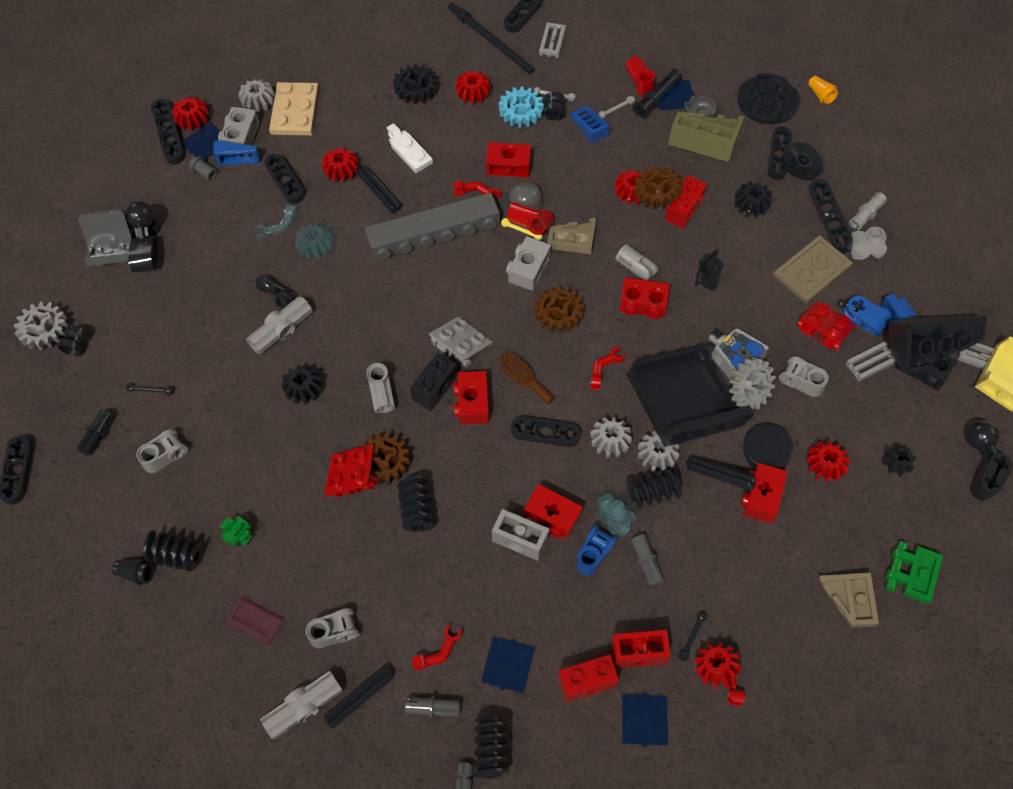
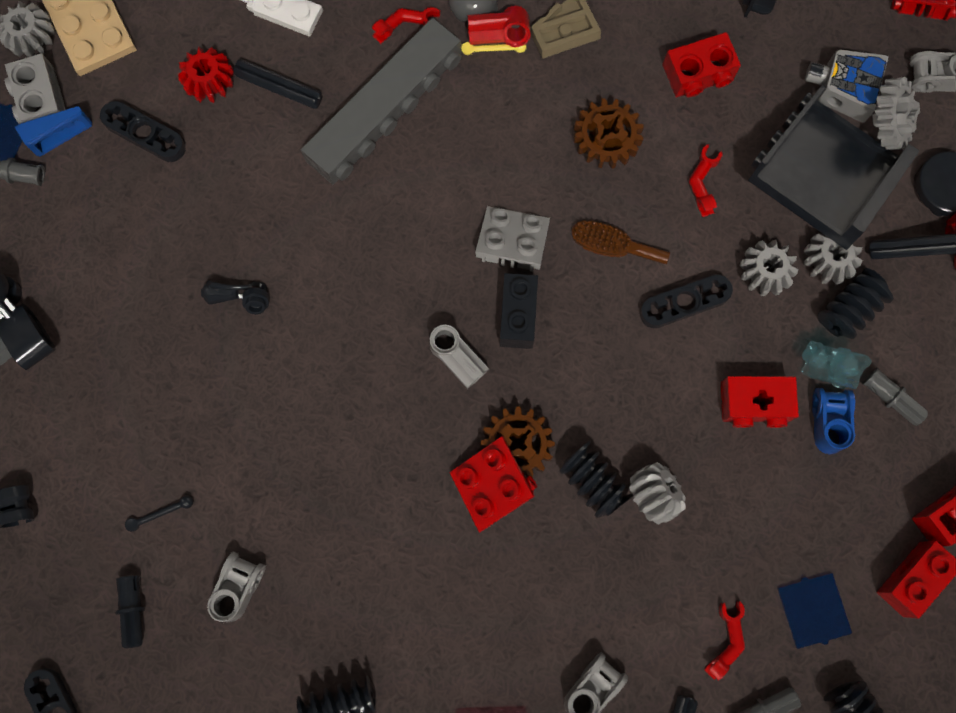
camera: 30 degrees left, 15 degrees up
(235, 531) = (399, 638): green gear -> none
(279, 324) = (272, 338): light grey piece -> none
(289, 215) = (184, 180): clear light blue arm -> none
(310, 386) = (366, 400): black gear -> none
(313, 240) = (238, 212): clear light blue gear -> none
(448, 530) = (657, 493): none -> light grey gear
(473, 385) = (574, 287): red brick -> none
(520, 534) = (743, 450): light grey brick -> none
(532, 252) = (538, 73): light grey brick -> none
(636, 262) = (663, 22): light grey hinge -> none

